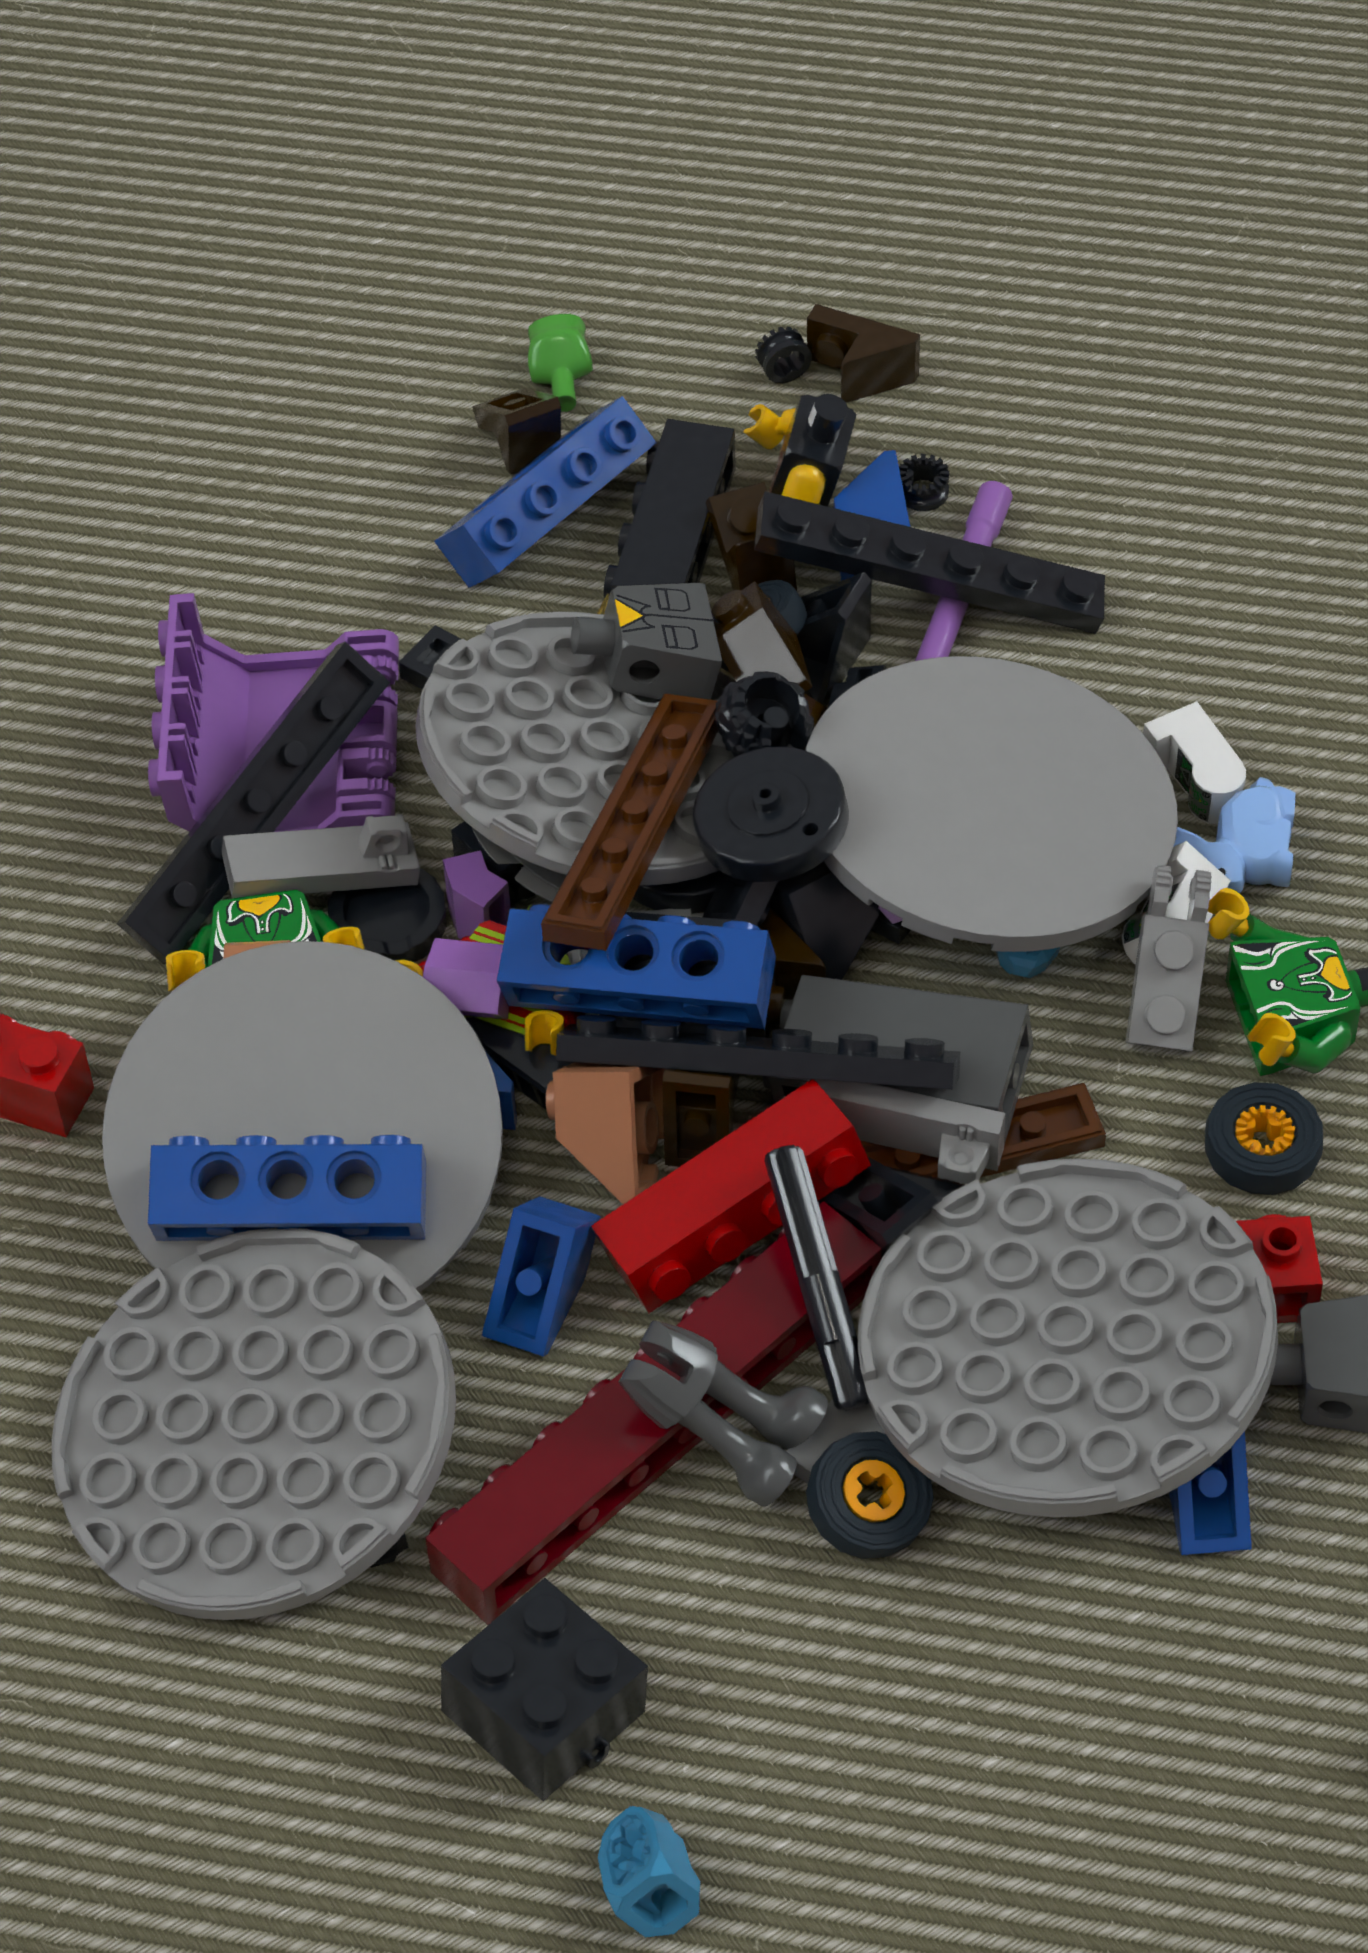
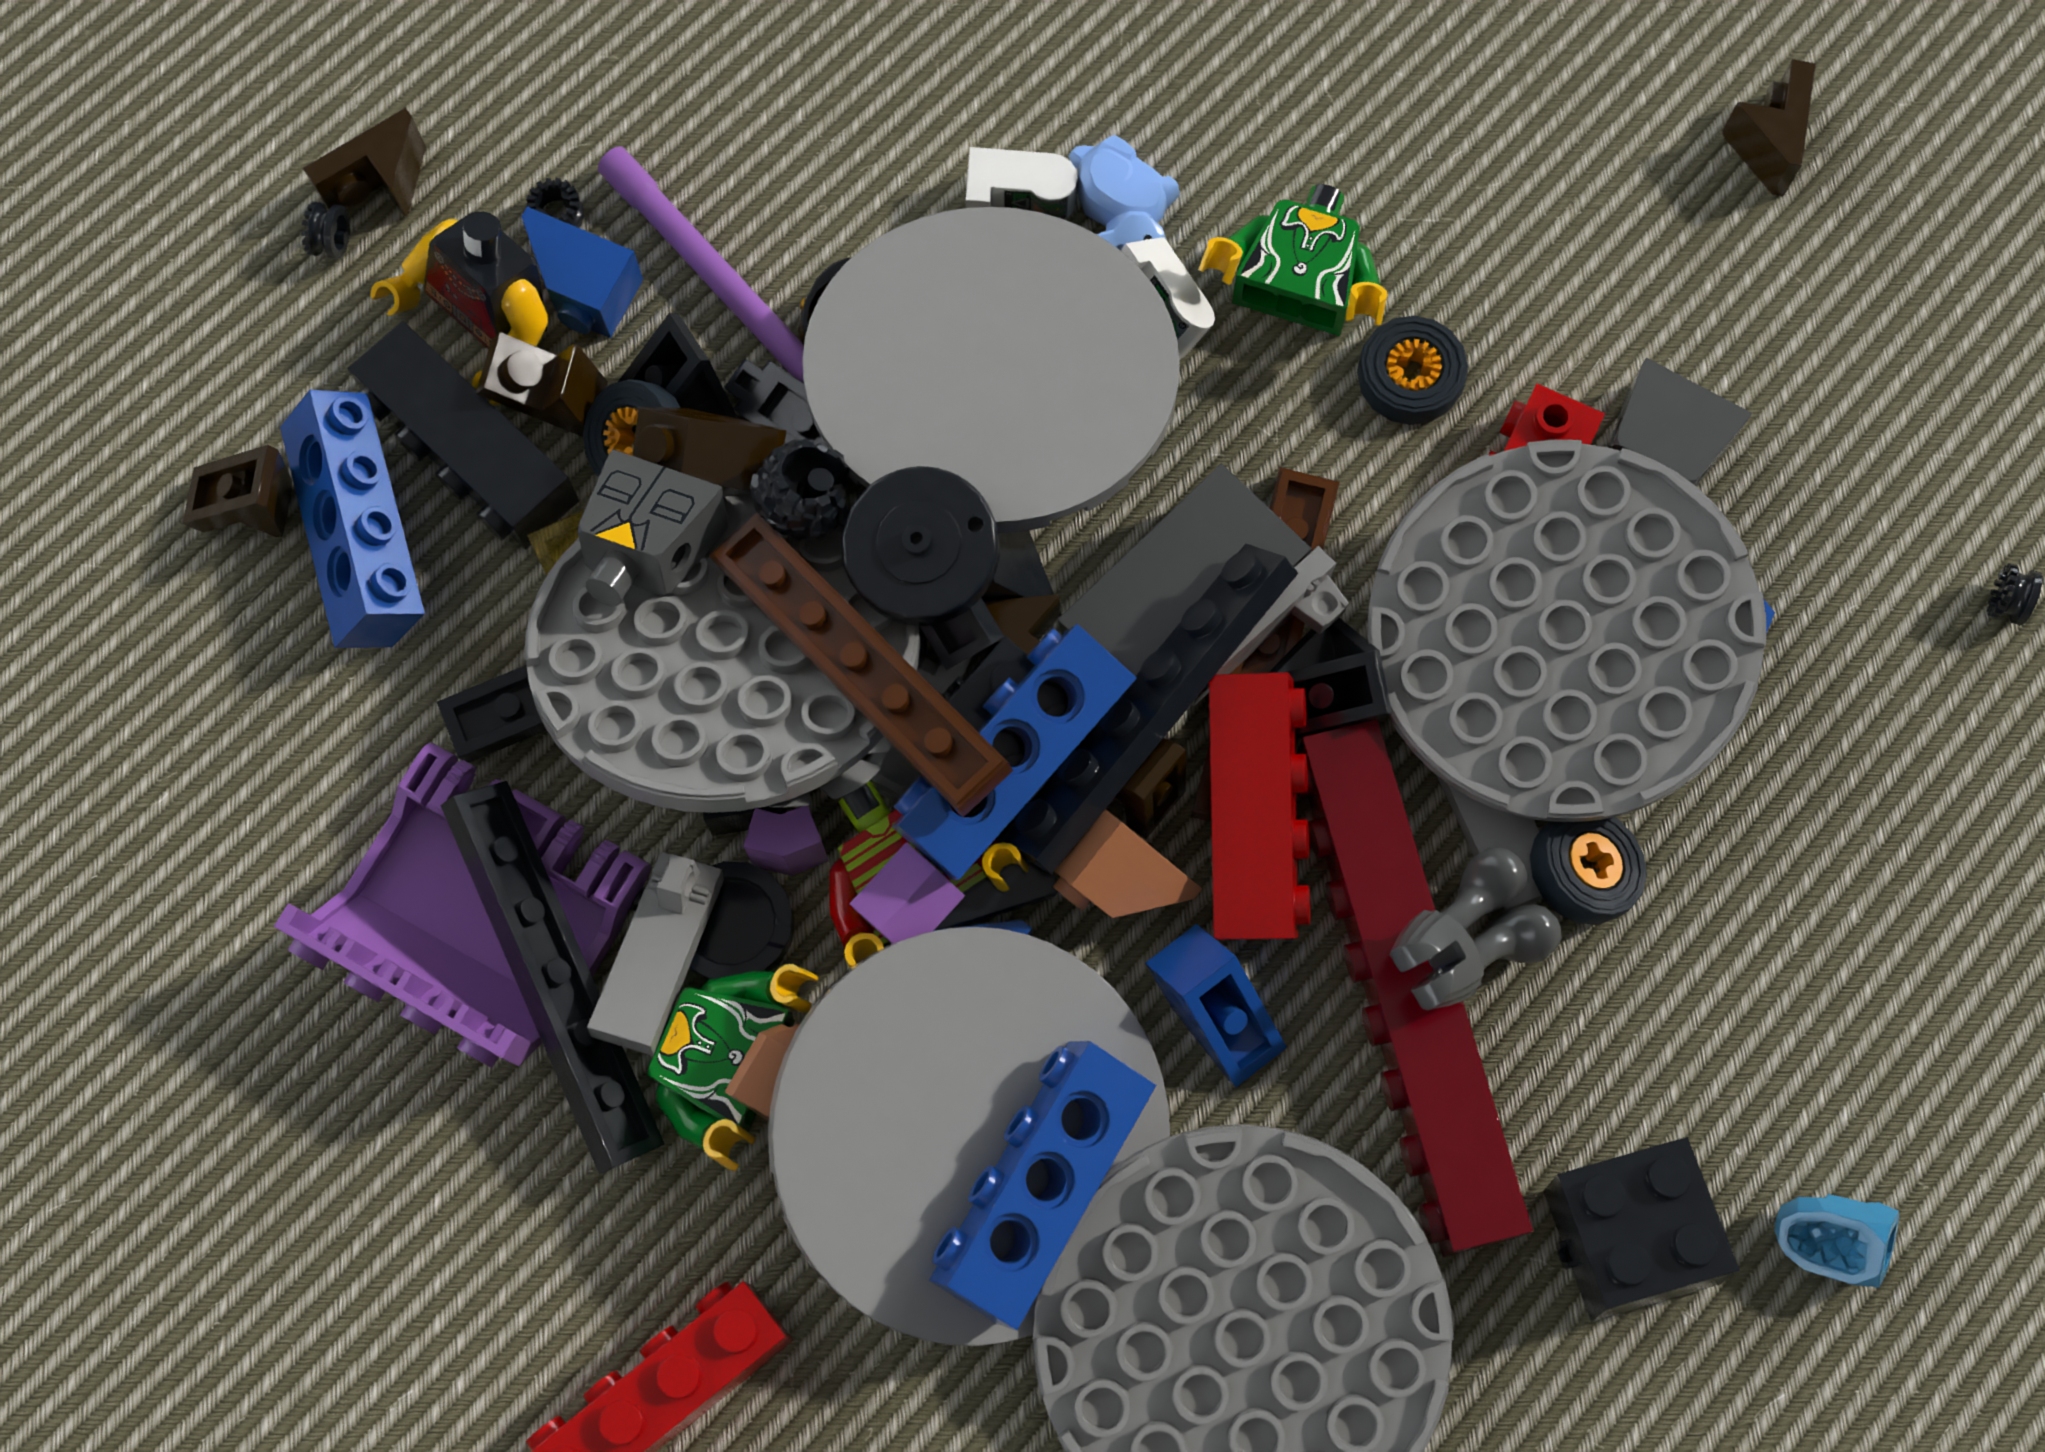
camera: 60 degrees left, 20 degrees up
(559, 355) = (179, 415): bright green piece -> none
(817, 1275) = (1394, 786): black axle -> none
(930, 562) = (673, 260): black plate -> none
(1169, 966) = (1226, 330): light grey hinge -> none

